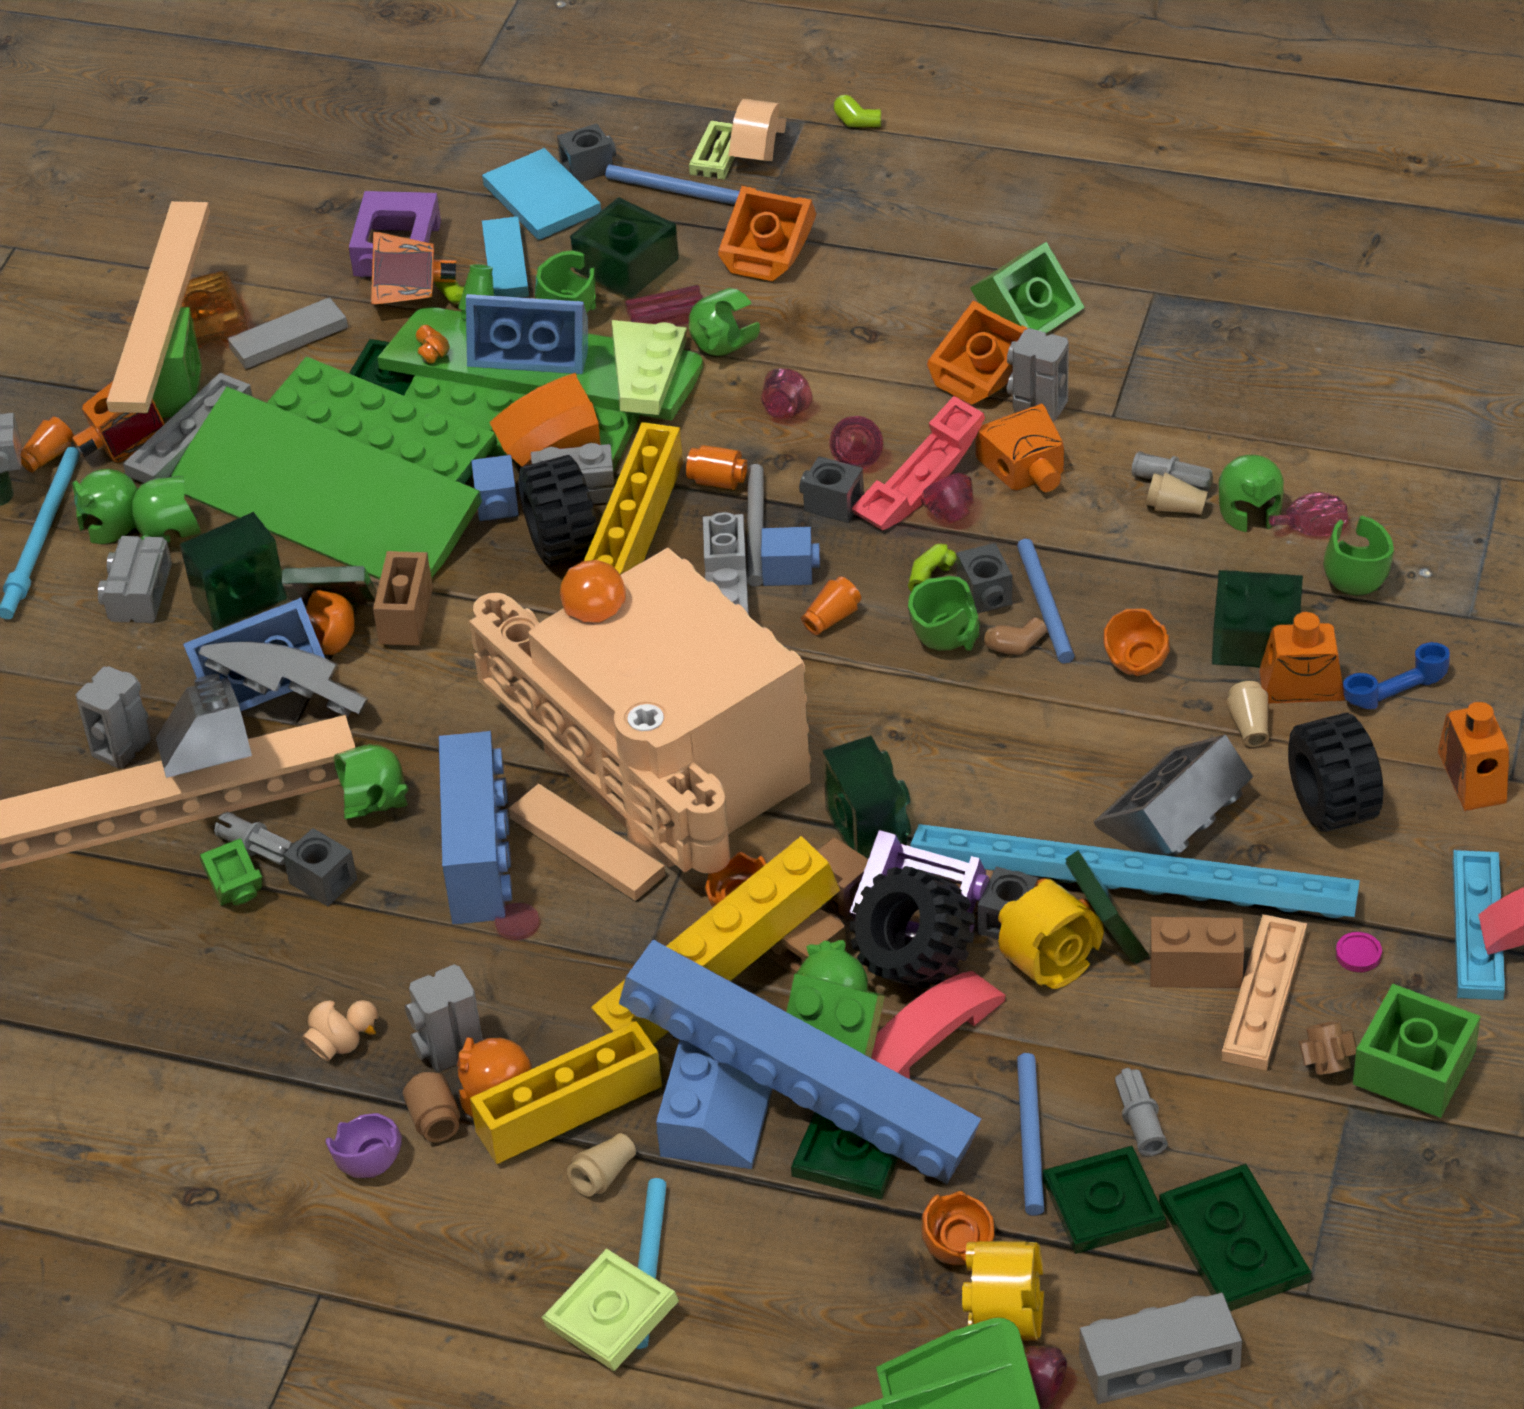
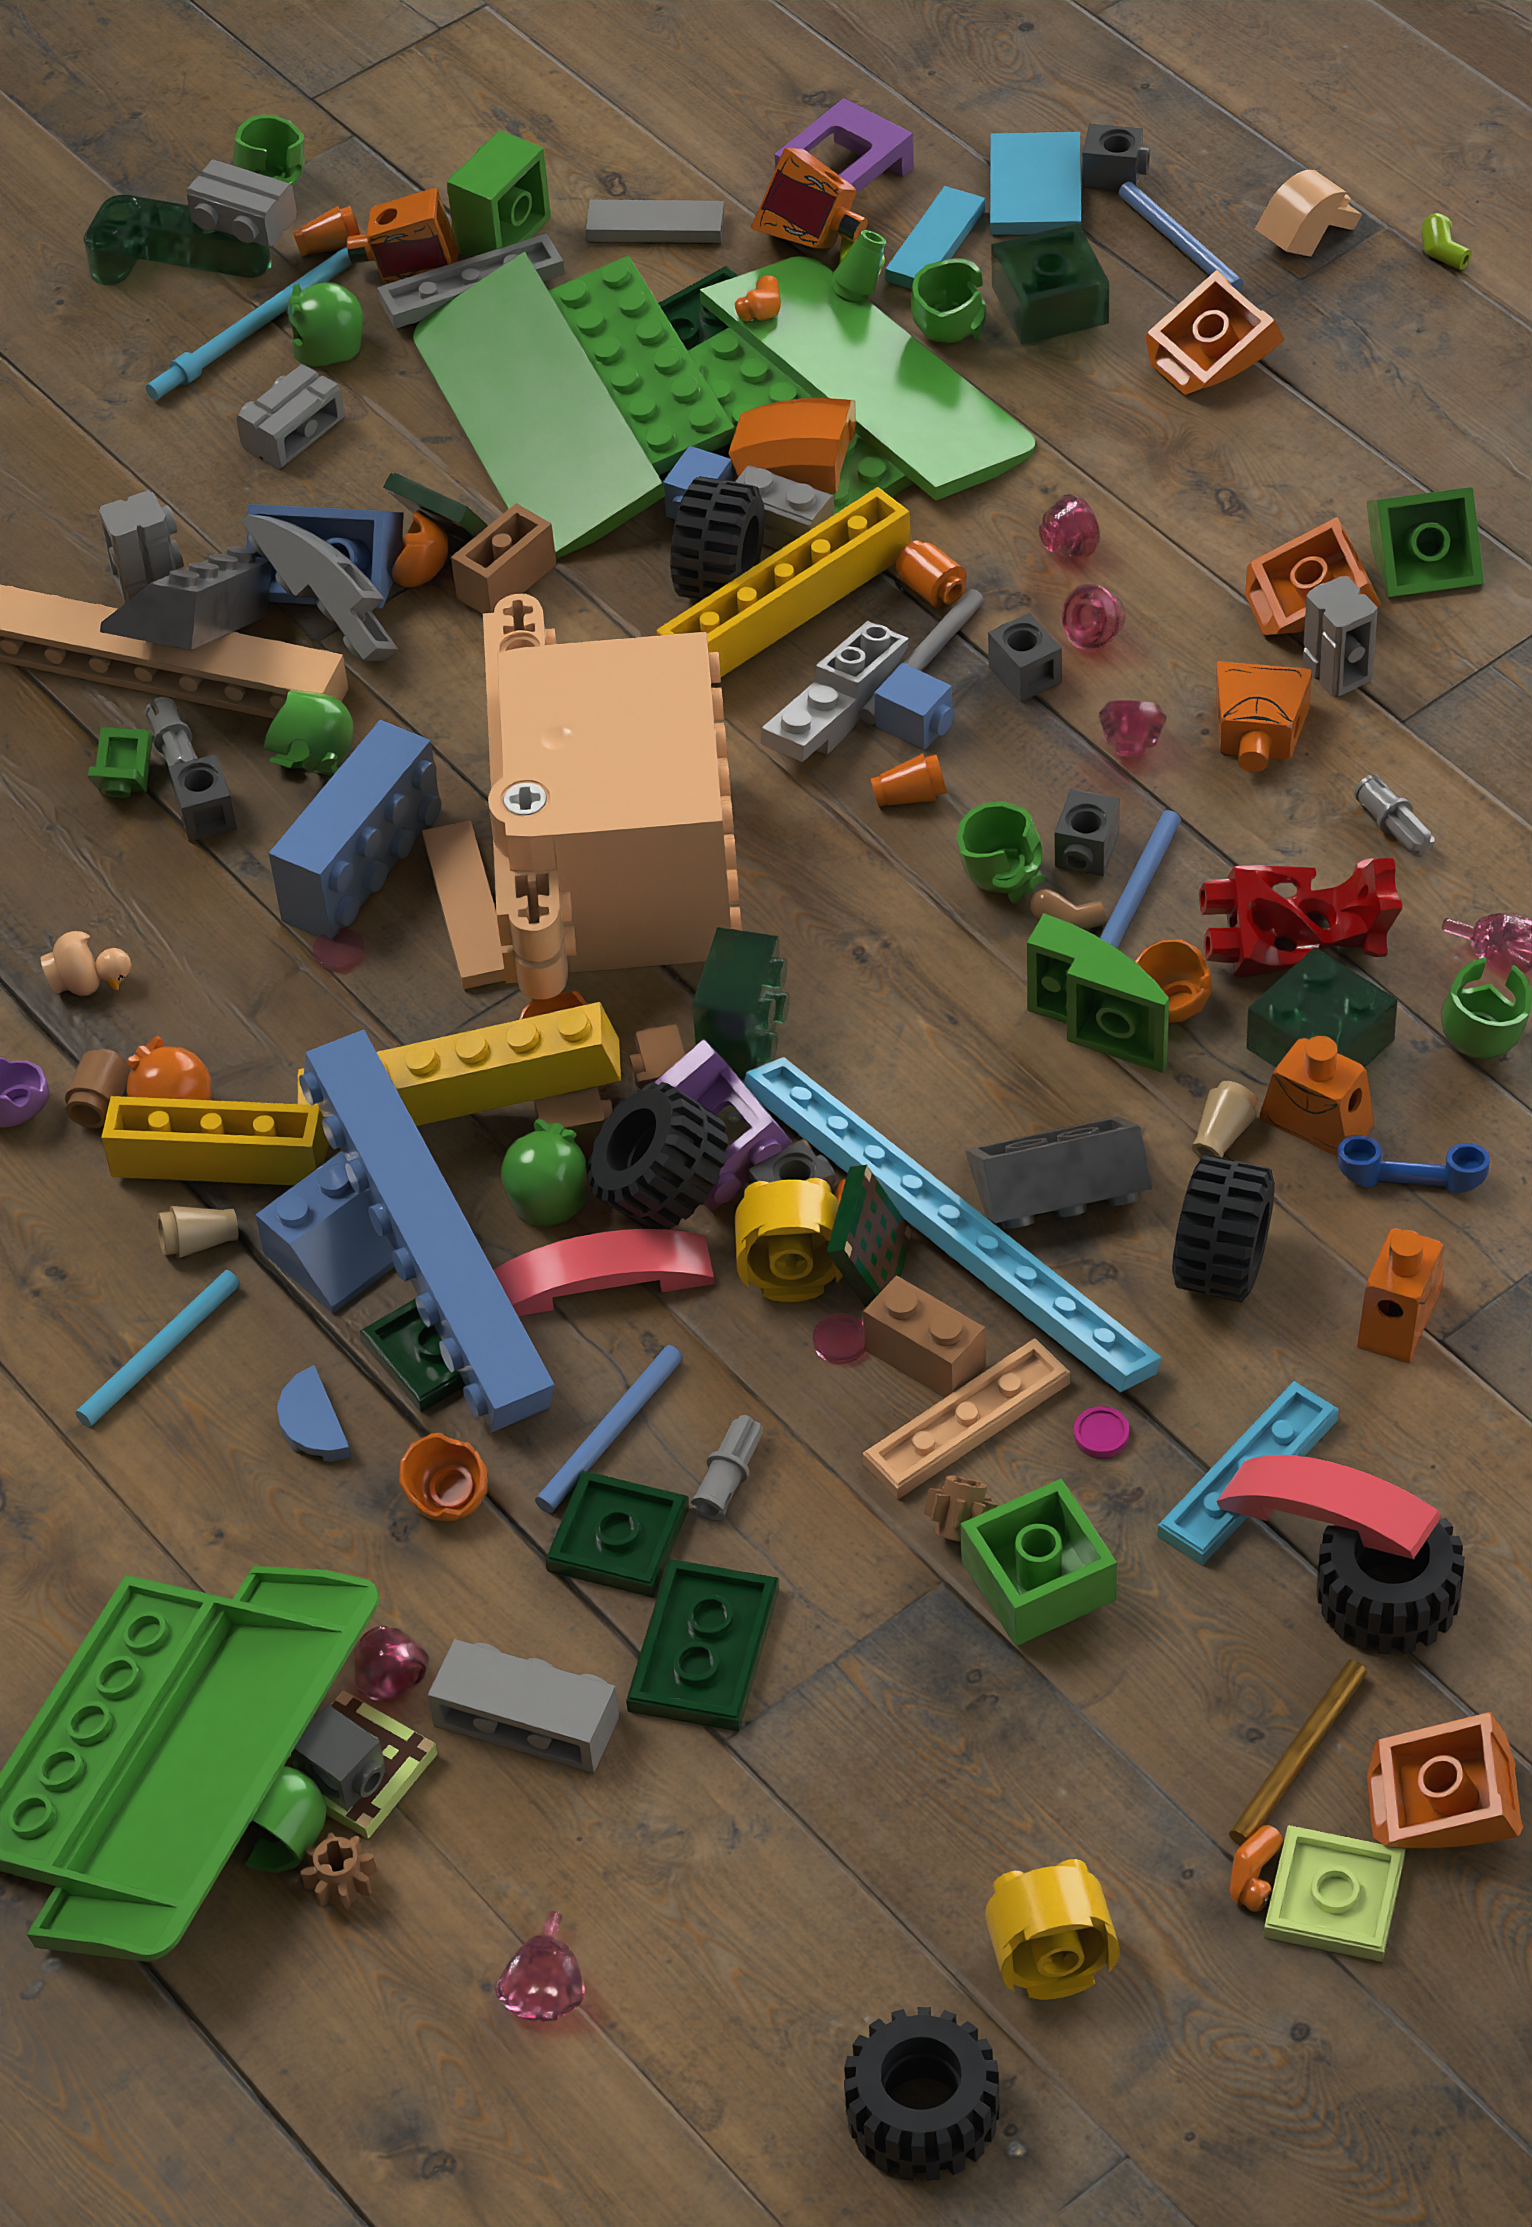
camera: 35 degrees right, 5 degrees up
(158, 308) = (510, 133): light nougat tile -> none
(161, 507) = (369, 354): bright green helmet -> none
(214, 308) = (589, 156): clear orange brick -> none
(233, 570) = (362, 444): clear green brick -> none
(443, 1015) = (167, 1002): light grey brick -> none
(526, 334) = (851, 336): medium blue slope -> none
(592, 591) = (583, 640): orange hair -> none
(610, 1309) = (80, 1371): yellowish green tile -> none
(645, 363) = (958, 424): yellowish green wing -> none
(664, 307) = (1045, 374): clear pink tile -> none
(708, 167) = (1245, 234): yellowish green tile -> none
(714, 325) = (1070, 417): bright green helmet -> none
(810, 1247) = (309, 1418): none -> medium blue tile
(837, 1010) = (505, 1208): bright green plate -> none
(924, 565) = (1046, 787): lime arm -> none
(933, 460) = (1151, 678): coral slope -> none
(1005, 1285) = (423, 1562): yellow brick -> none
(1104, 671) = (1098, 994): none -> bright green slope
(1128, 988) = (839, 1338): none -> clear pink piece
(1175, 495) = (1366, 837): tan cone -> none
(1211, 543) = (1356, 911): none -> red hips
(1253, 481) = (1451, 868): bright green helmet -> none

